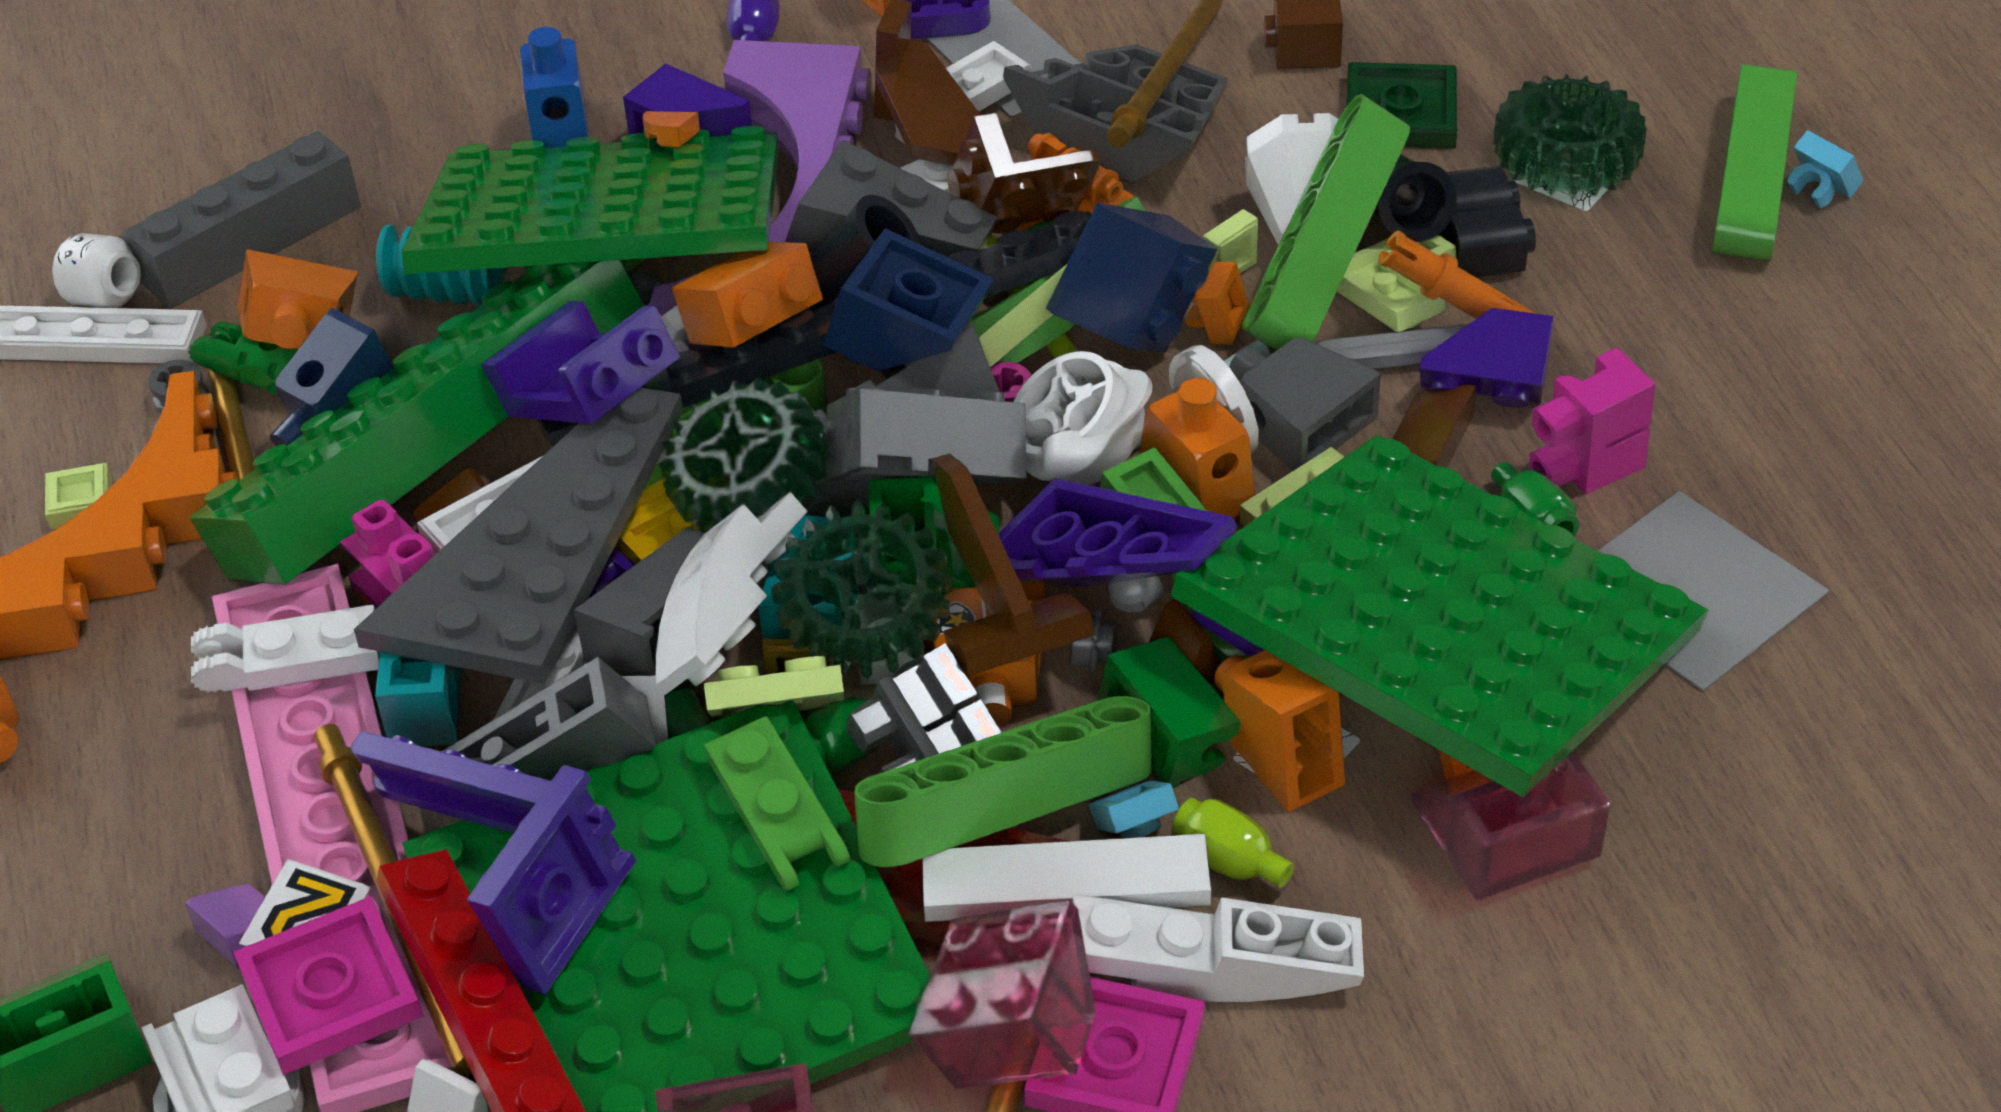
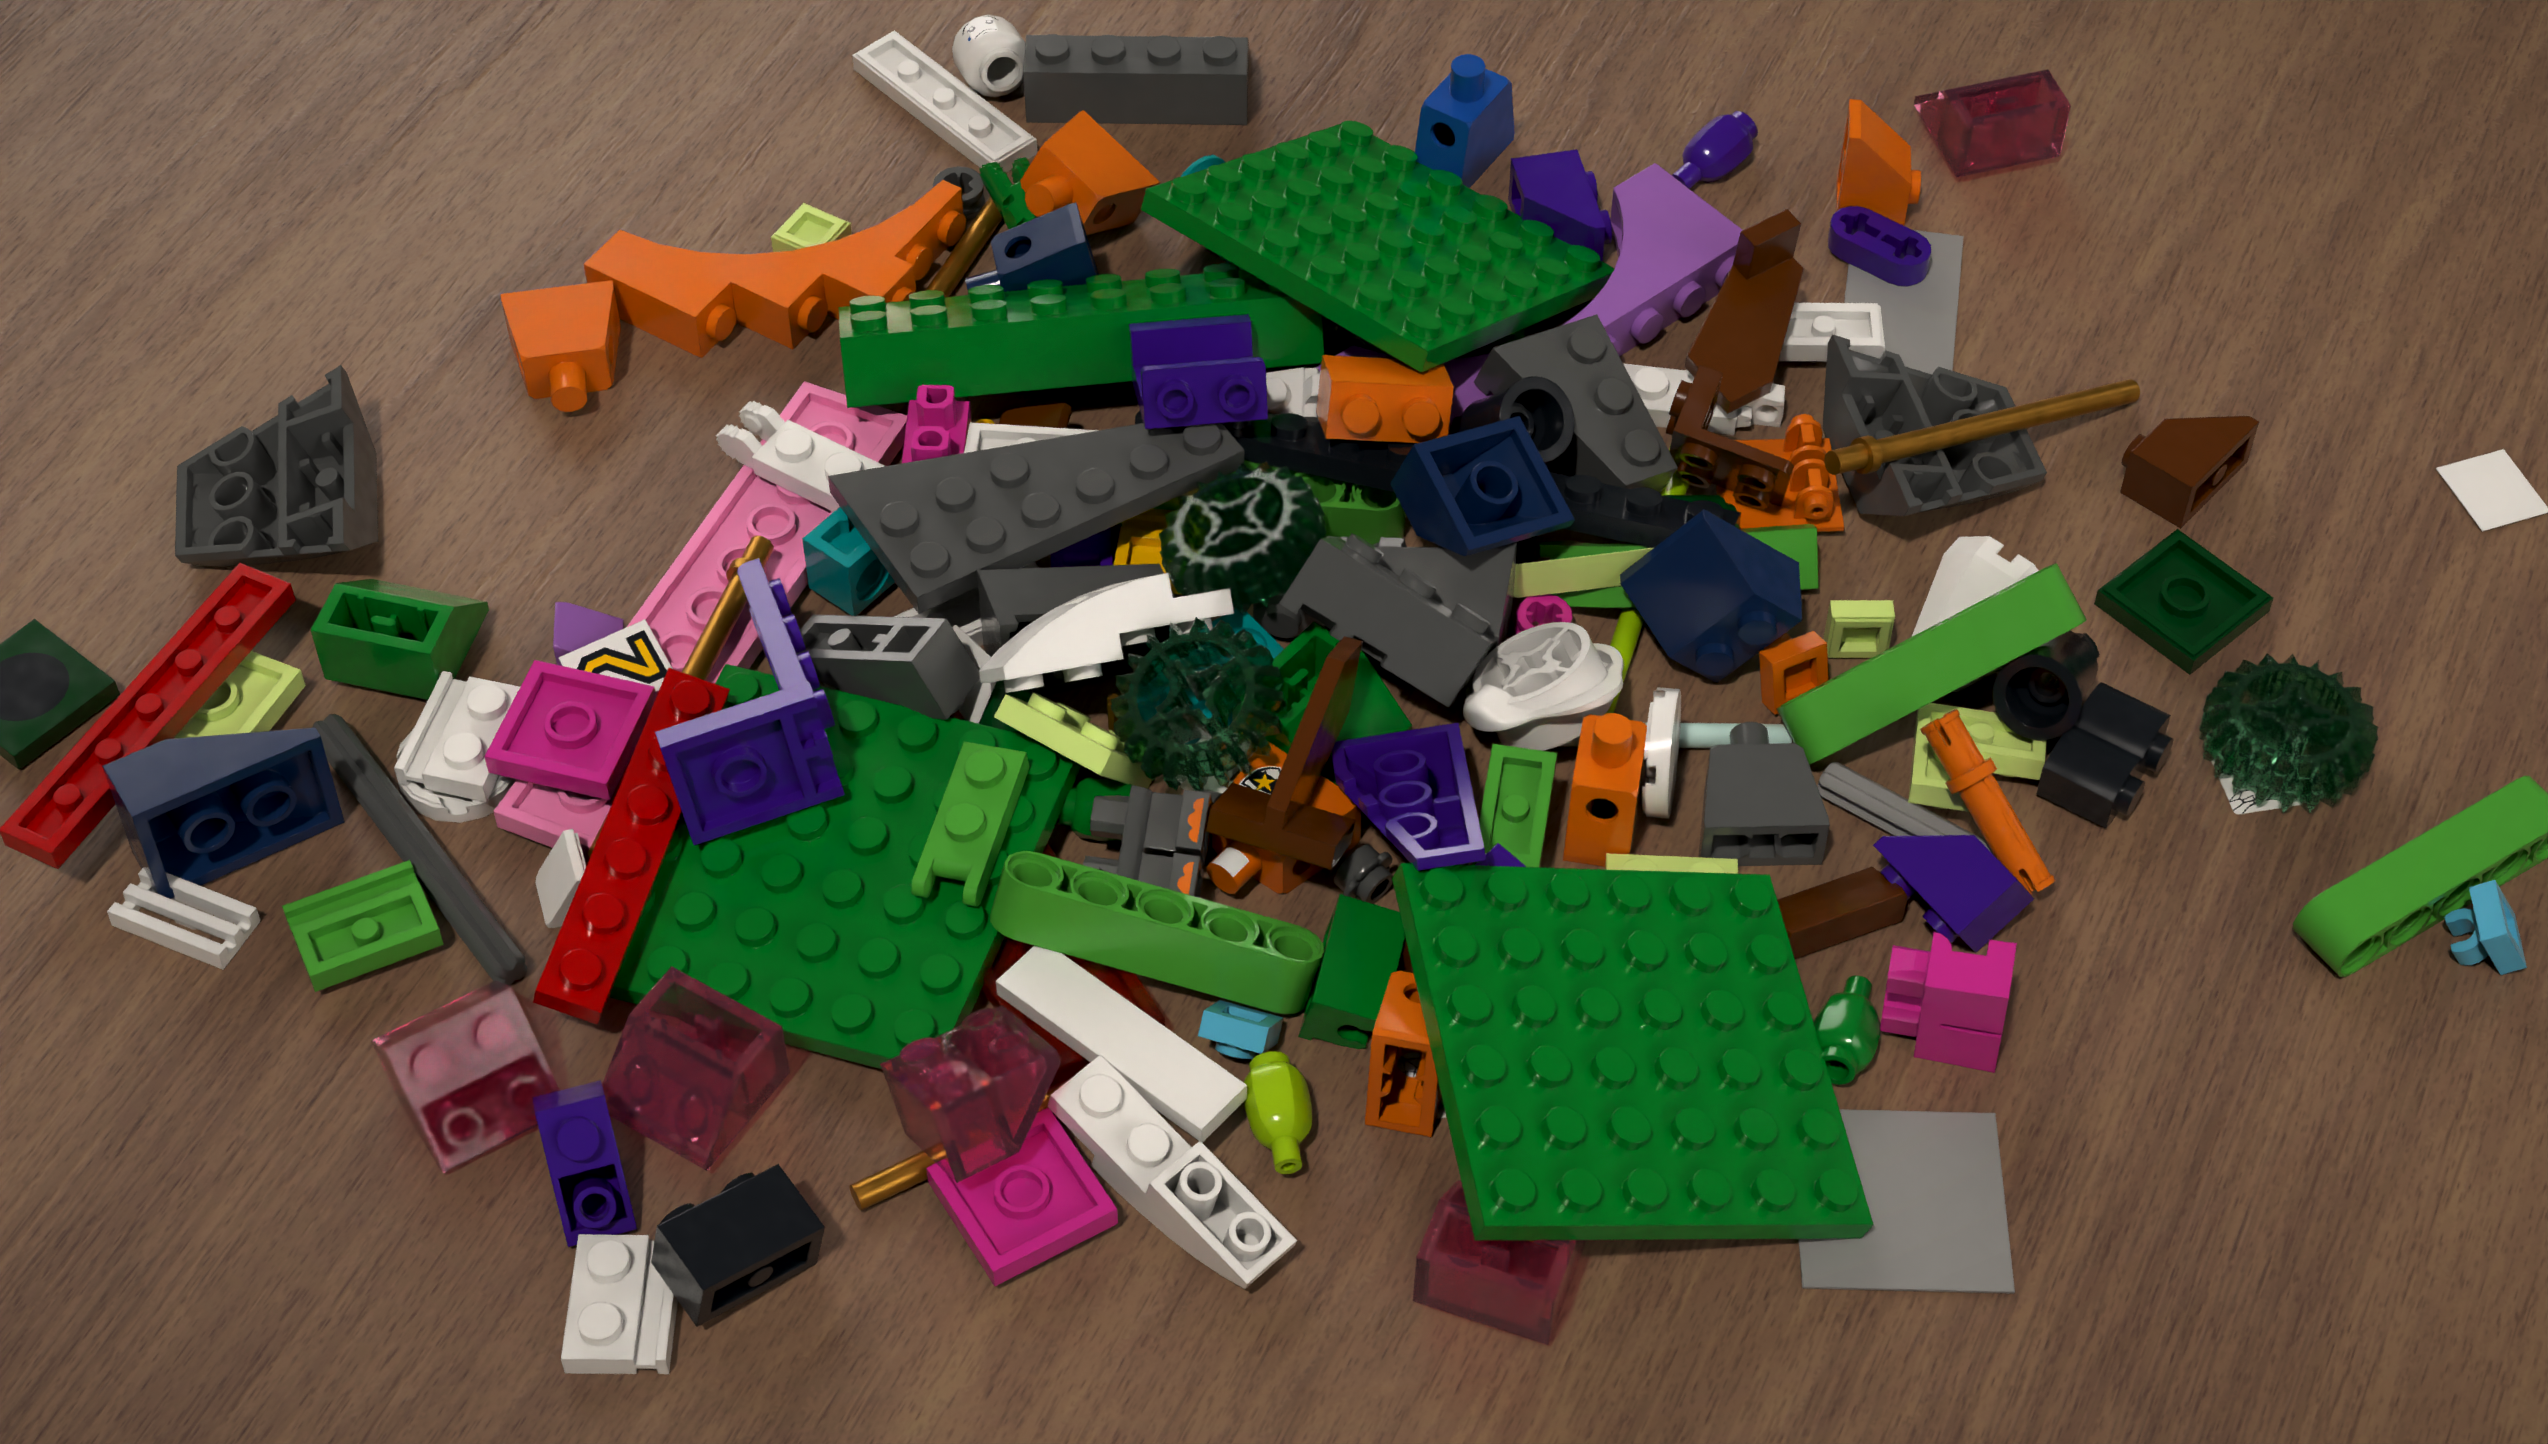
camera: 40 degrees right, 5 degrees up
(670, 128) = (1515, 211): orange tile -> none

